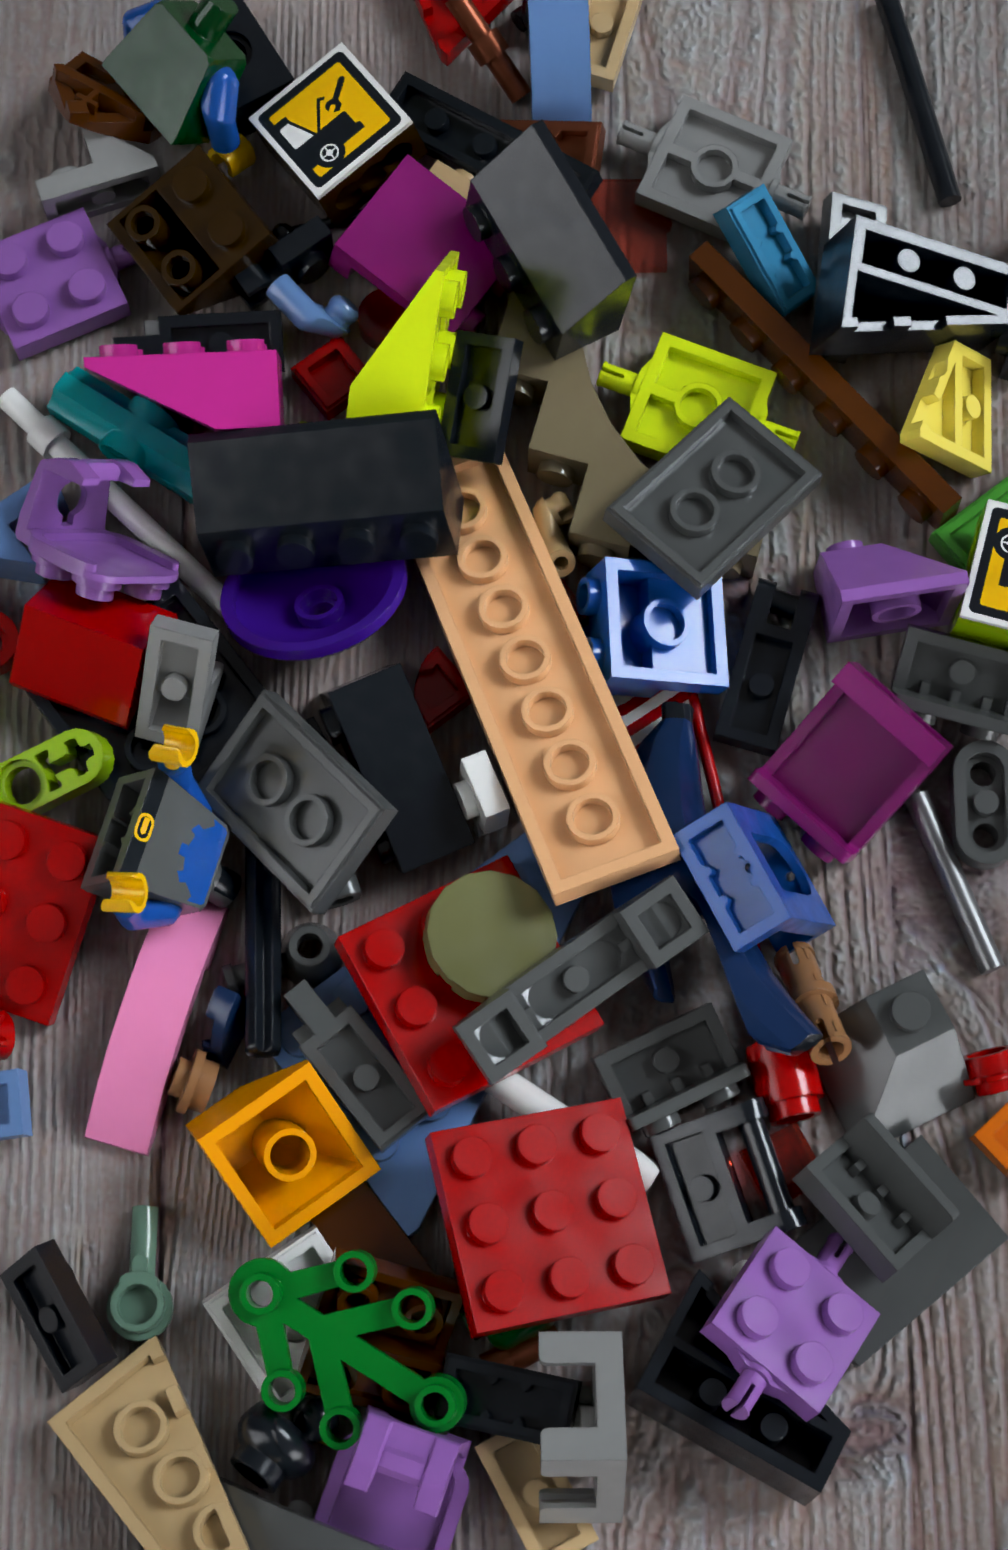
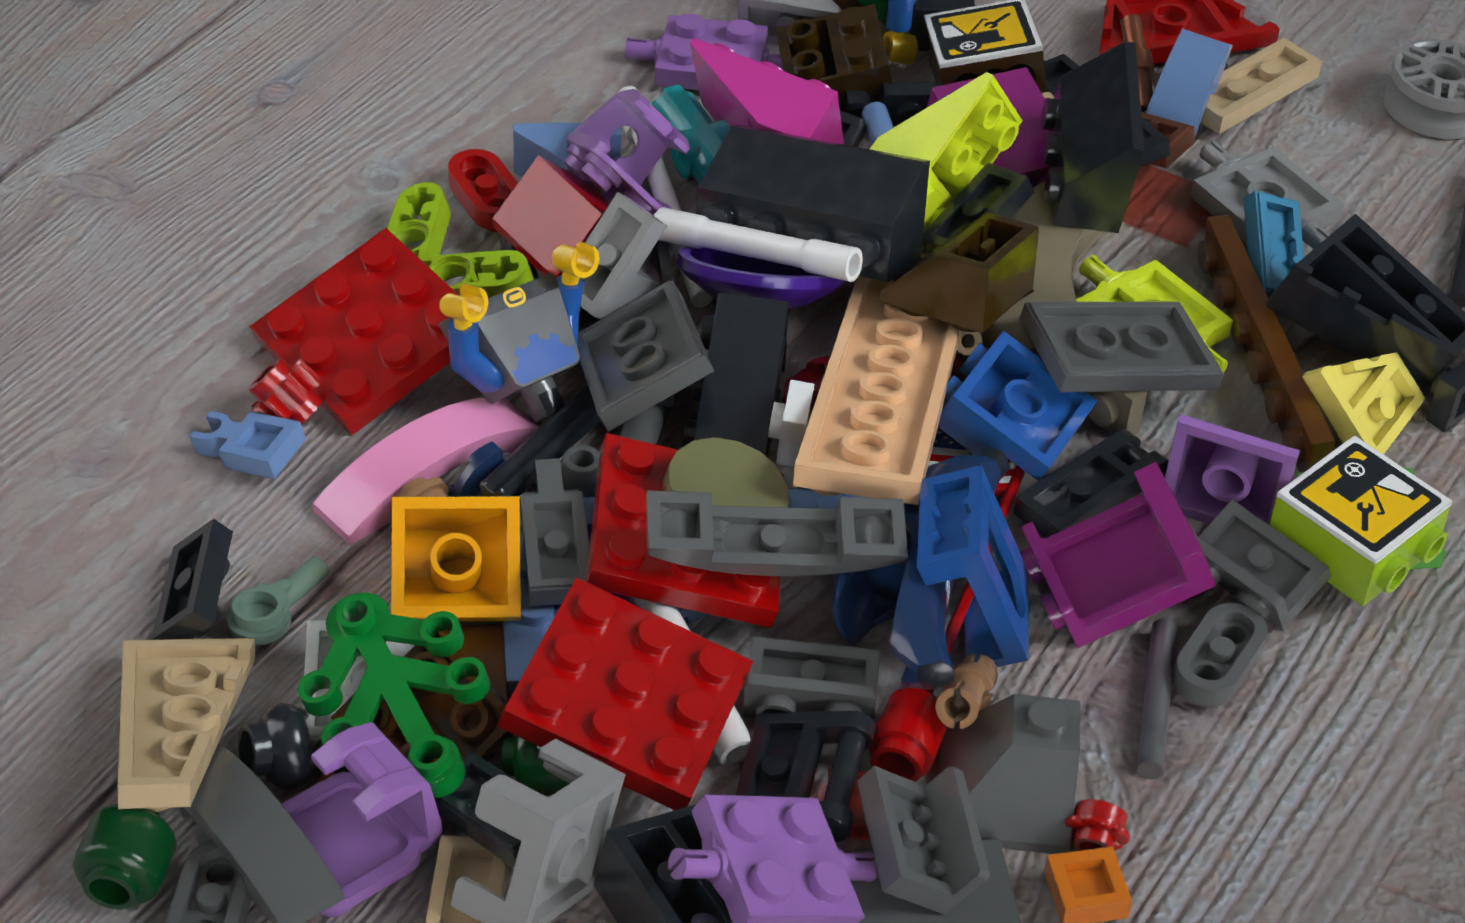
camera: 30 degrees right, 30 degrees down
(371, 571) = (811, 255): none -> white piece
(527, 506) = (970, 275): none -> dark brown slope

